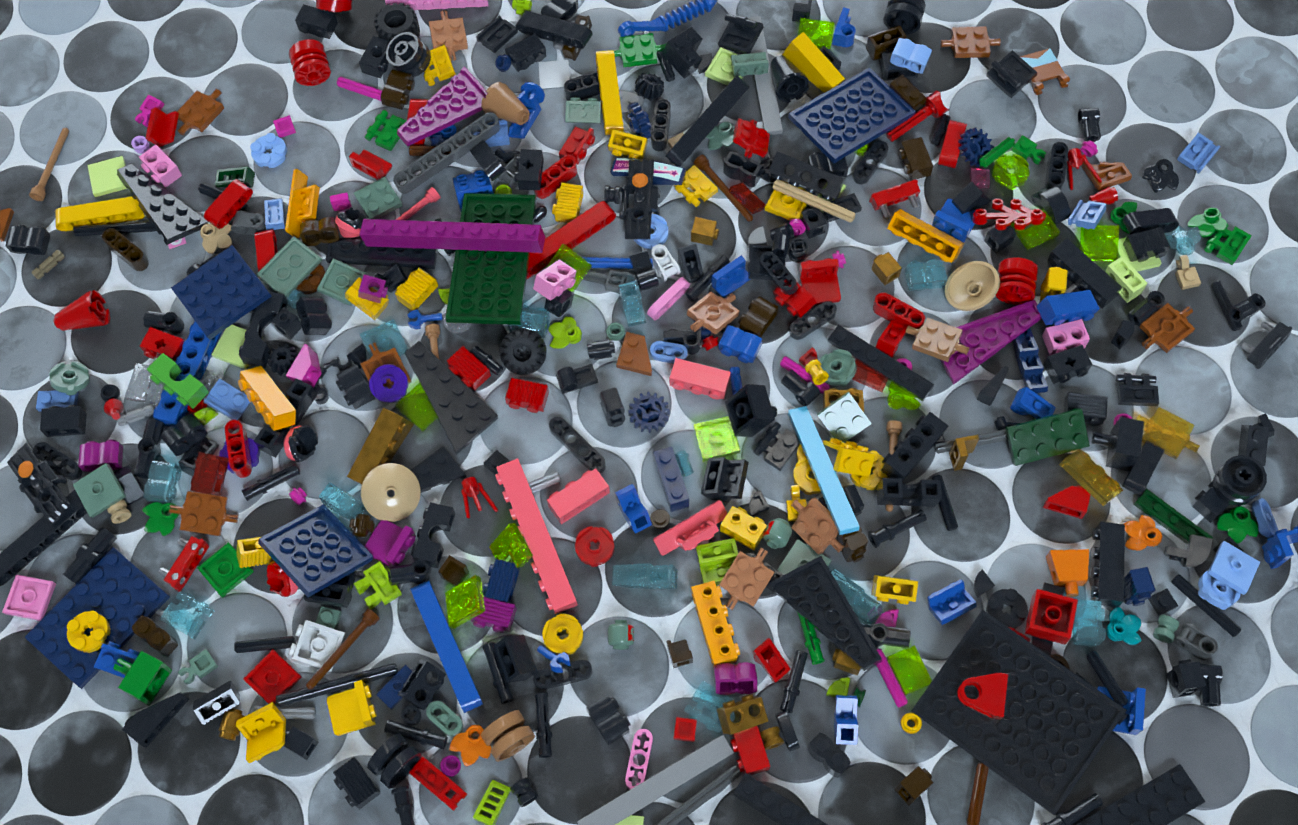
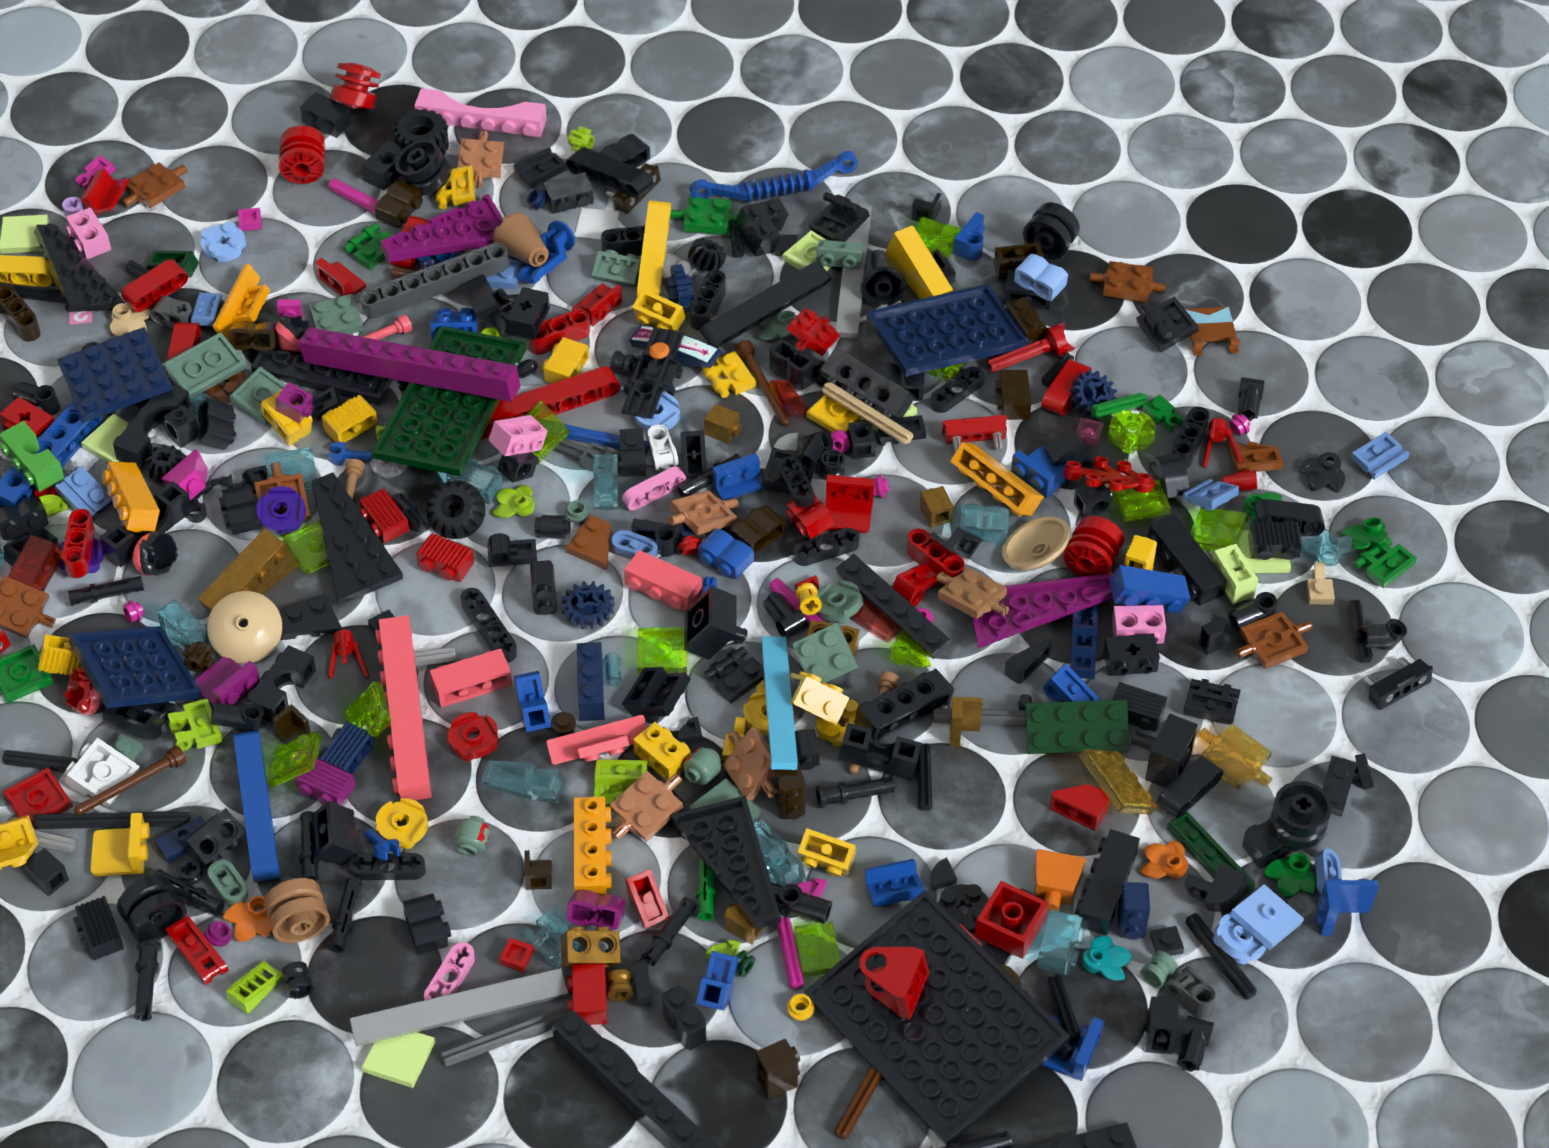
camera: 10 degrees right, 15 degrees down
(917, 300) = (961, 542): none -> black panel

